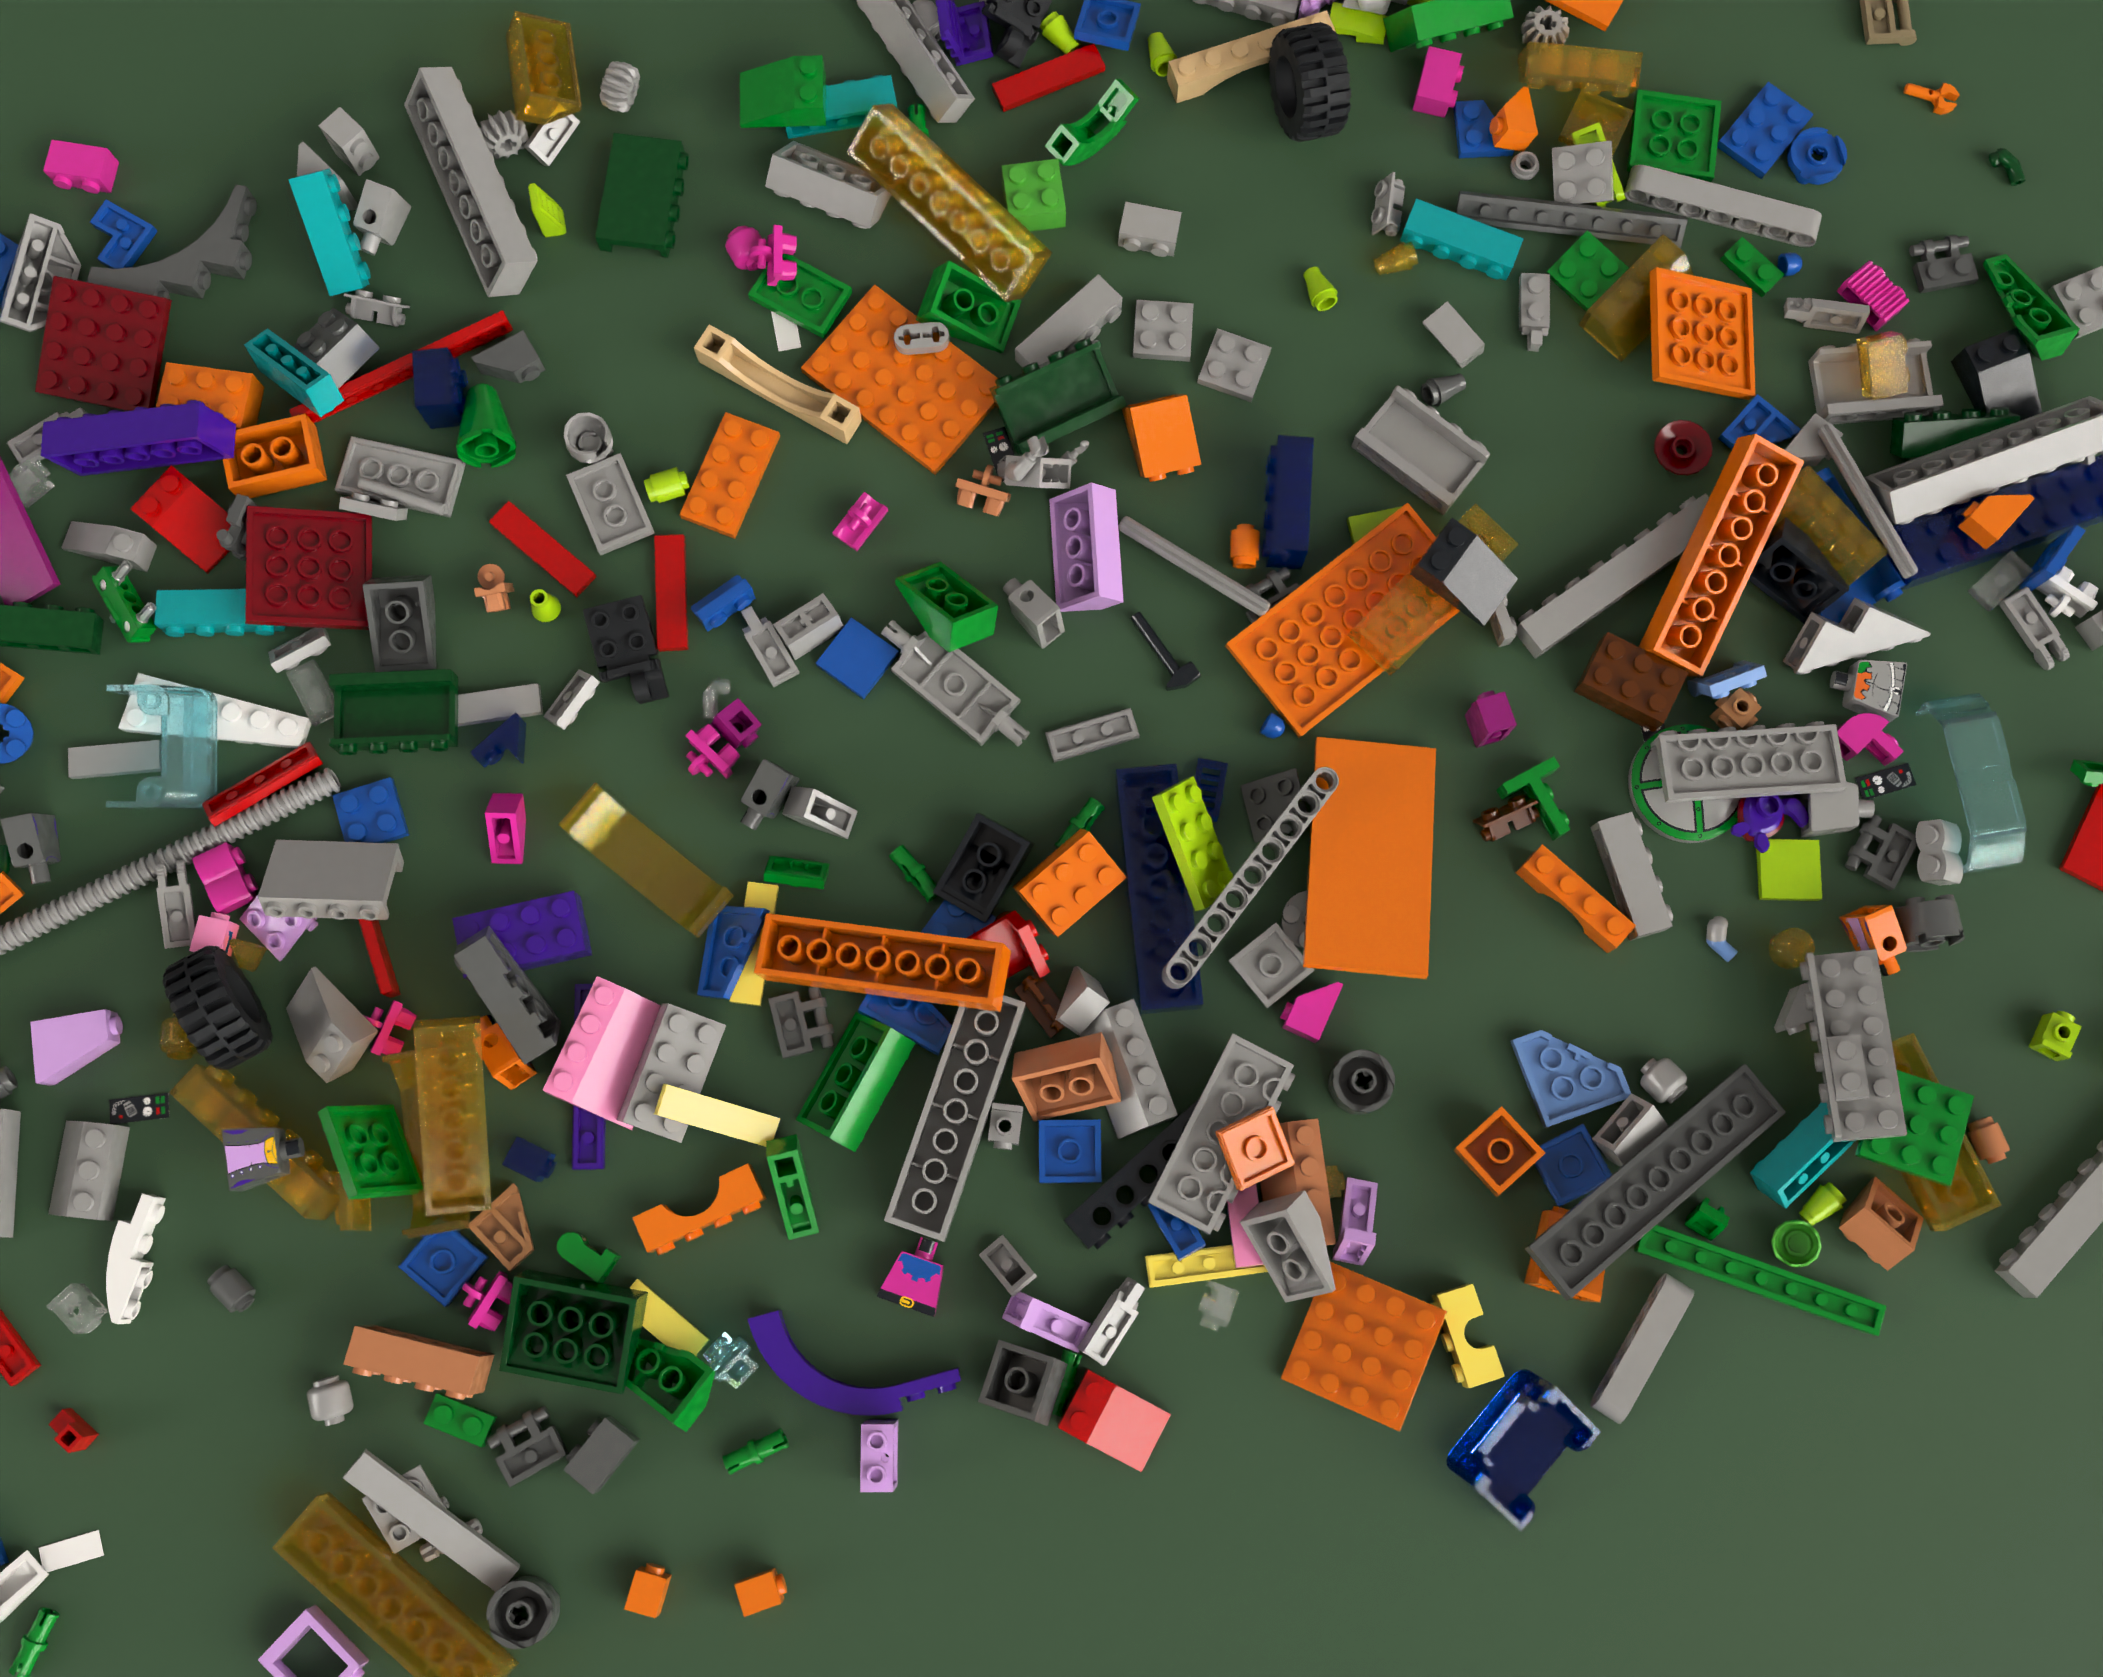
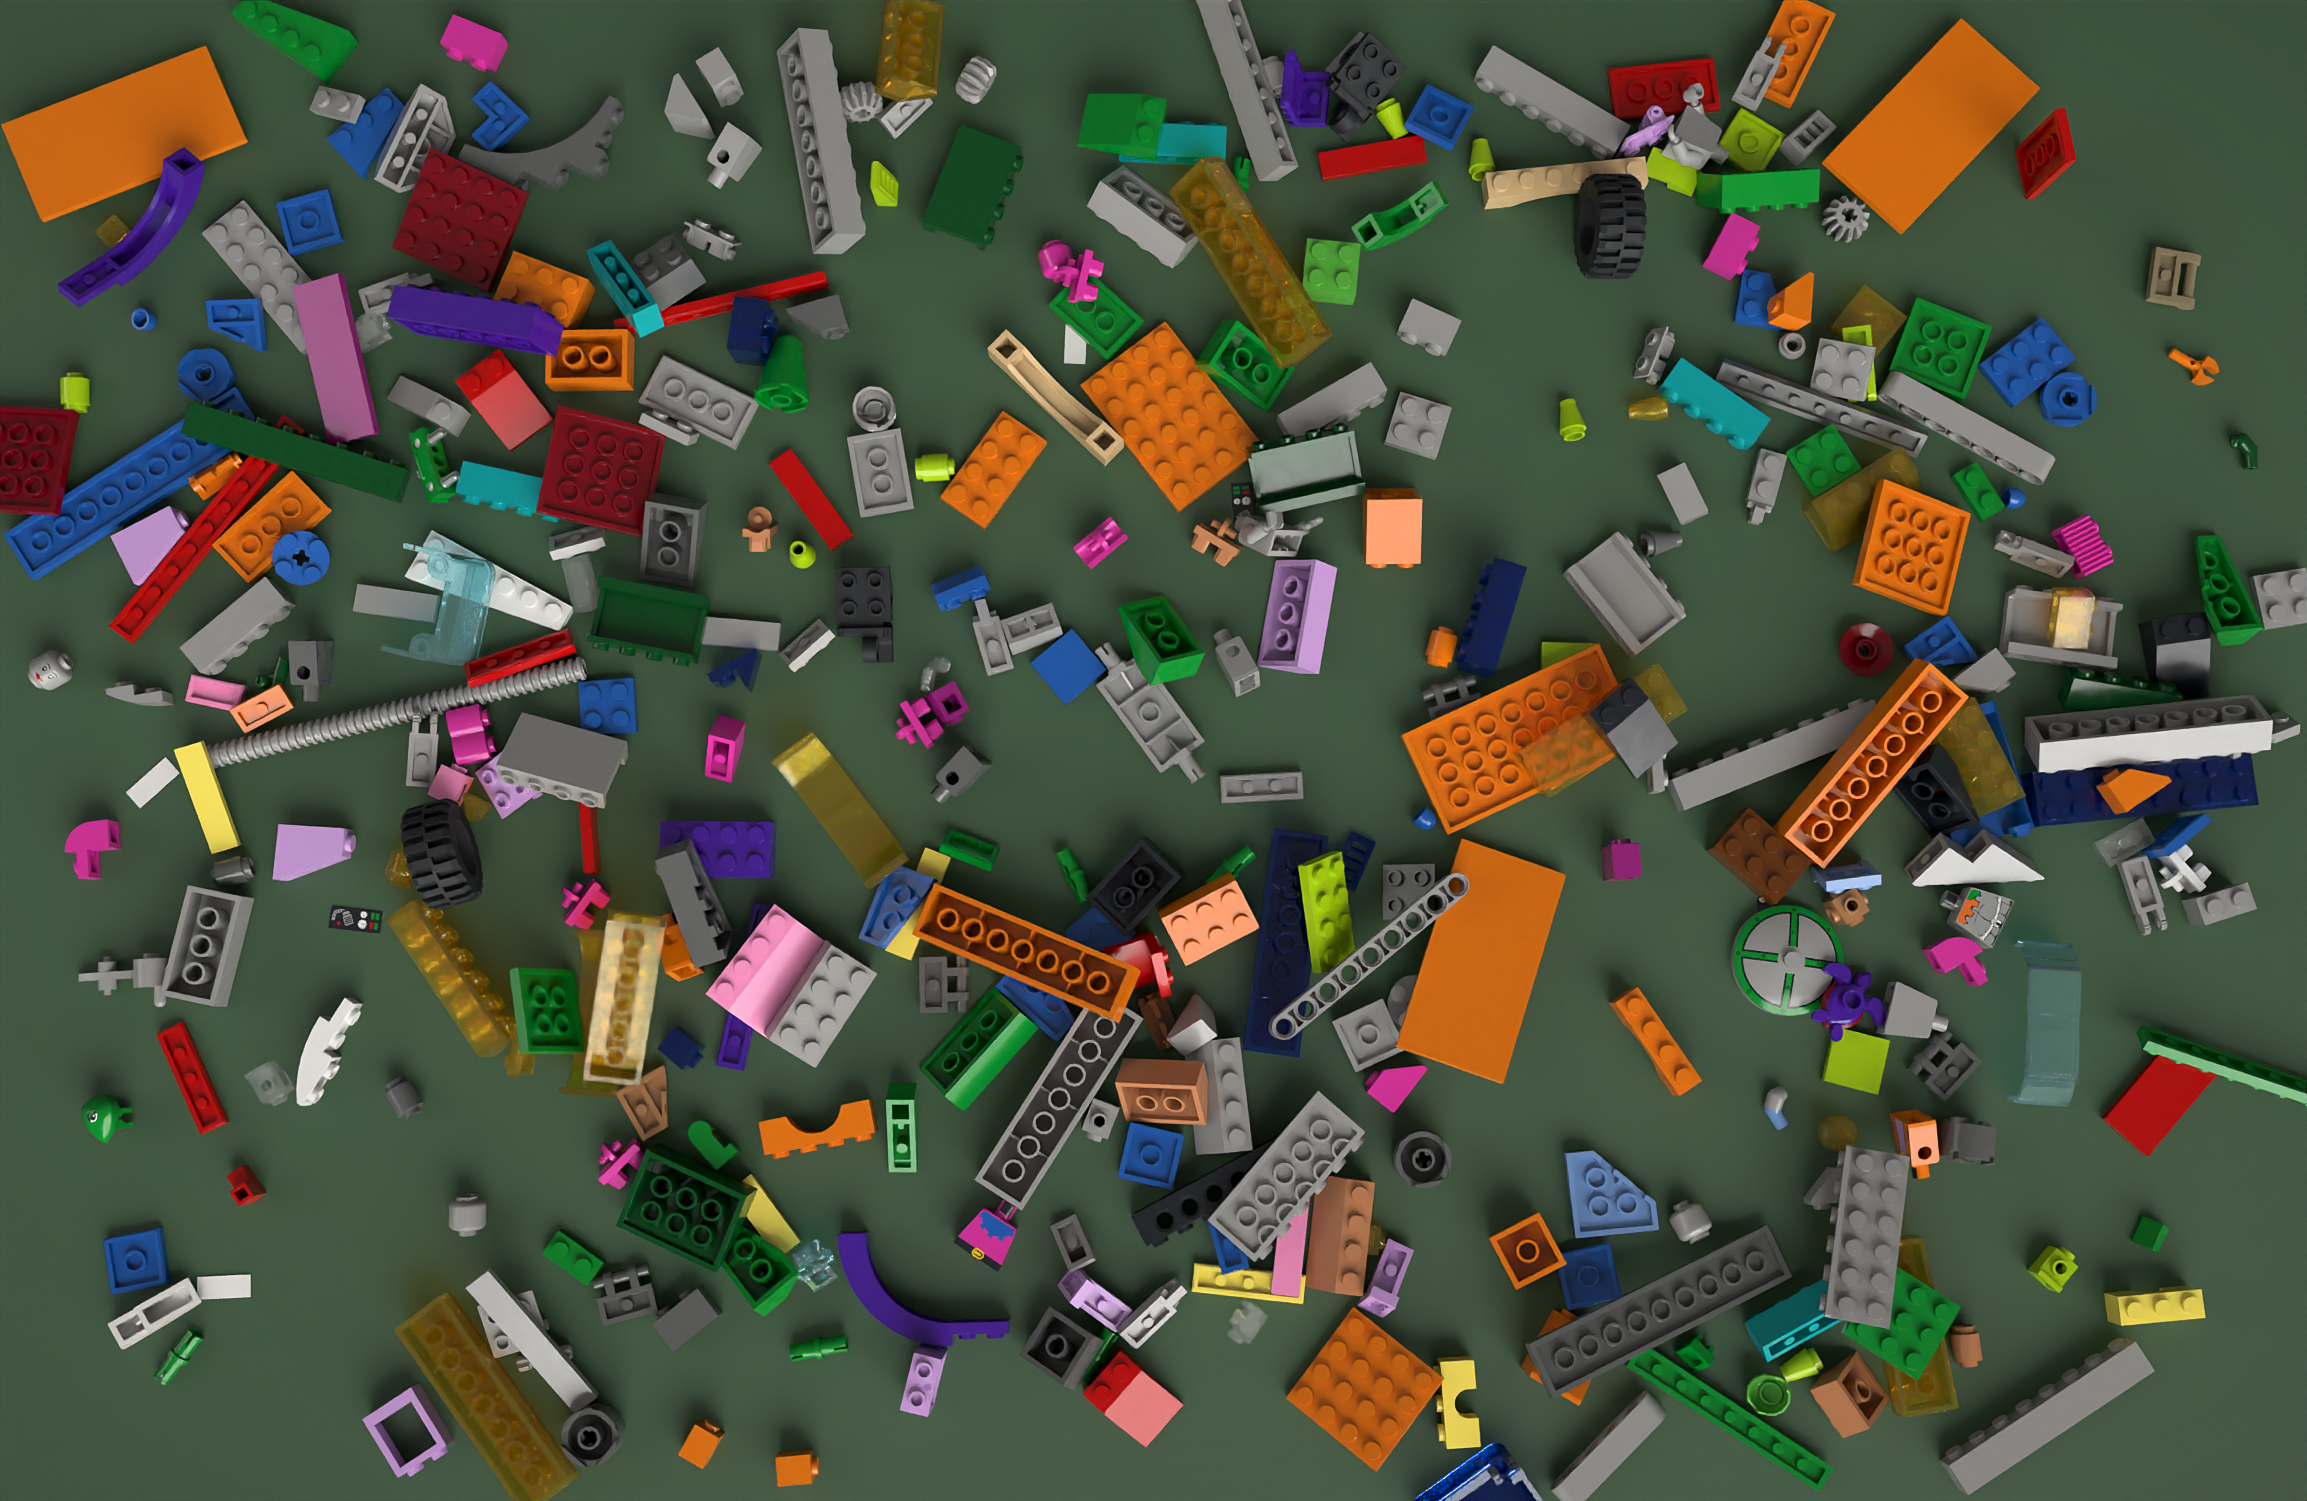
camera: 15 degrees right, 5 degrees up
(89, 1170) = (302, 965): light grey slope -> none
(235, 538) = (542, 430): dark grey plate -> none
(258, 1156) = (451, 994): torso -> none
(328, 1027) = (532, 890): light grey slope -> none
(330, 231) = (684, 163): teal brick -> none
(401, 495) = (696, 422): light grey bar -> none
(419, 1360) = (549, 1200): nougat brick -> none
(443, 1264) = (588, 1121): blue tile -> none
(671, 592) = (916, 567): red tile -> none
(716, 1115) = (850, 1051): light yellow tile -> none
(819, 811) = (1002, 800): light grey slope -> none
(921, 338) = (1195, 378): light grey beam -> none
(1181, 676) = (1354, 753): black piece -> none
(1194, 566) = (1390, 655): light grey axle -> none
(1234, 365) = (1474, 473): light grey plate -> none
(1255, 1148) = (1312, 1197): tile -> none
(1291, 1245) = (1322, 1288): light grey slope -> none
(1496, 819) = (1626, 949): reddish brown hinge -> none
(1530, 782) = (1648, 940): green bracket -> none
(1579, 68) = (1866, 267): clear yellow slope -> none
(1629, 1130) = (1647, 1259): light grey brick -> none
(1631, 874) = (1711, 1032): light grey brick -> none
(1750, 762) = (1845, 958): light grey bracket -> none
(1848, 1067) = (1853, 1256): light grey plate -> none
(1867, 500) = (2019, 742): light grey axle -> none
(1885, 781) = (1966, 1001): black sticker -> none
(1939, 852) = (1994, 1079): light grey brick -> none
(1946, 272) = (2154, 538): dark grey plate -> none

